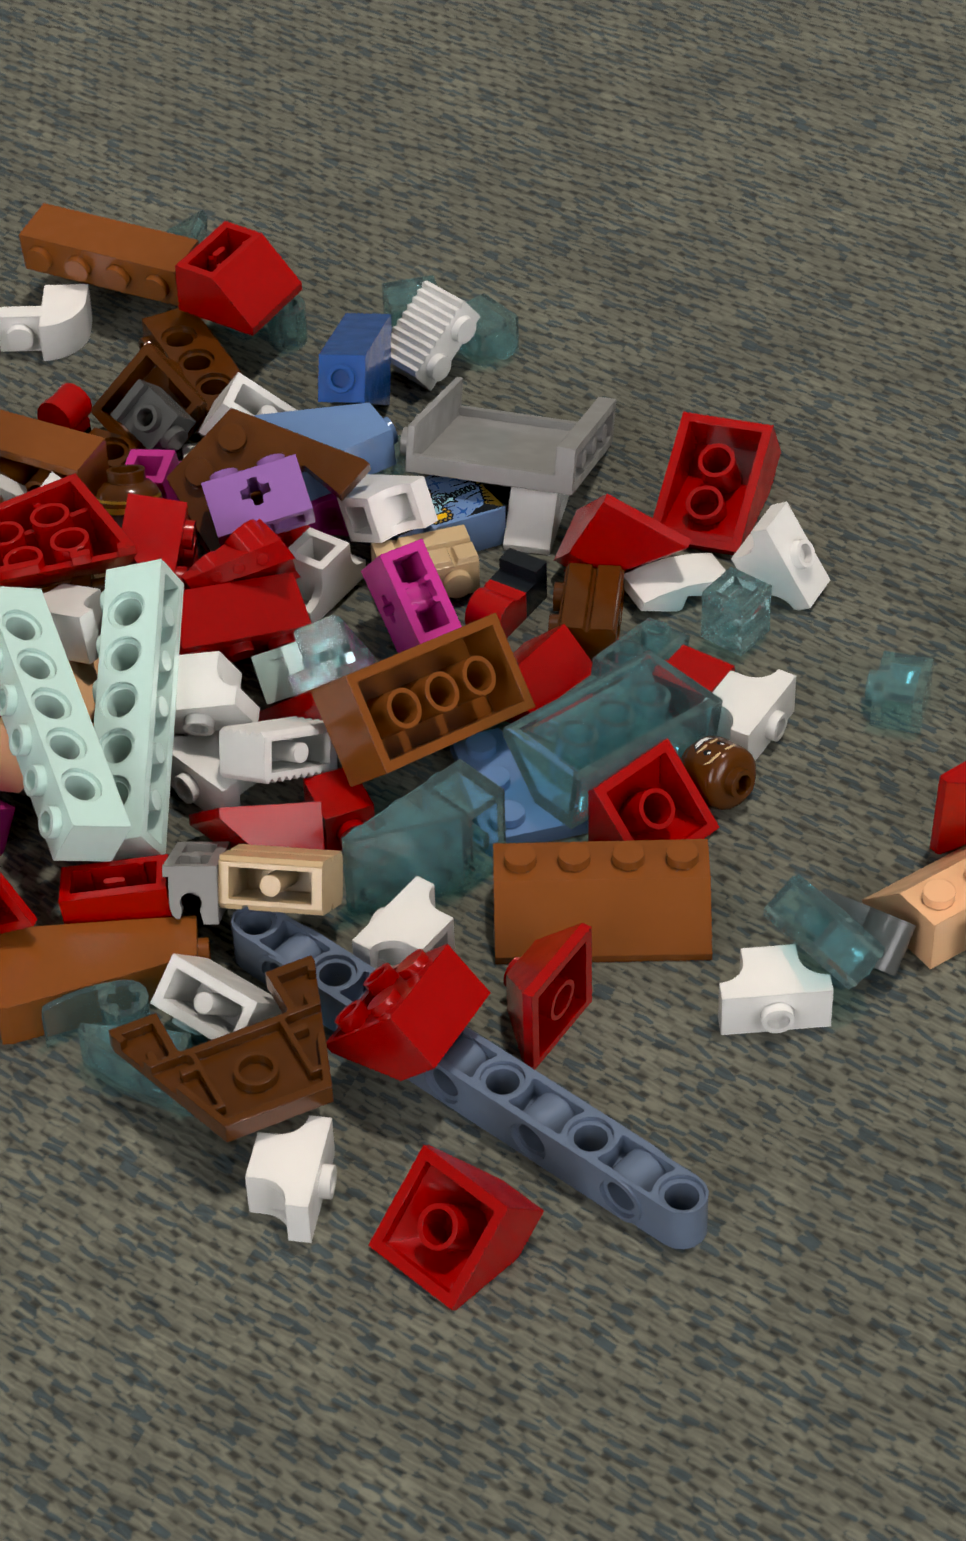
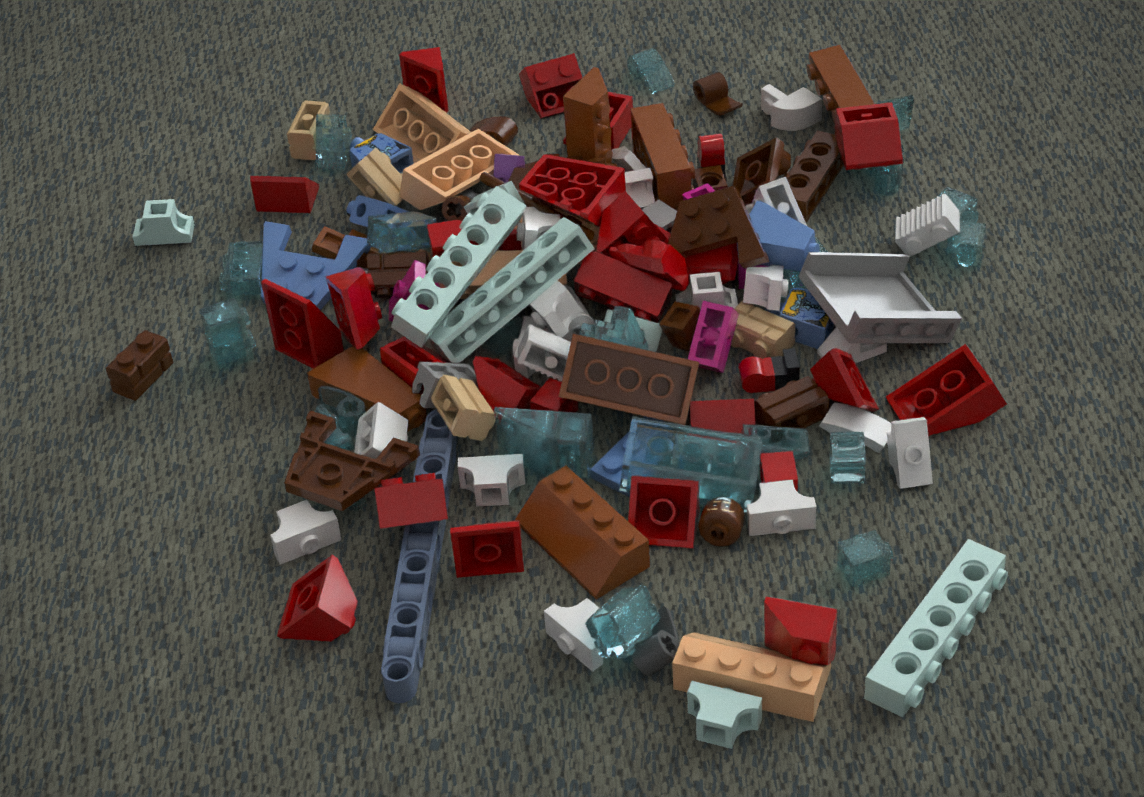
camera: 55 degrees right, 0 degrees up
(120, 482) = (668, 199): reddish brown piece -> none
(153, 417) = (743, 174): dark grey brick -> none
(280, 485) = (694, 238): medium lavender brick -> none
(356, 607) = (680, 324): none -> reddish brown brick
(357, 361) = (854, 213): blue slope -> none

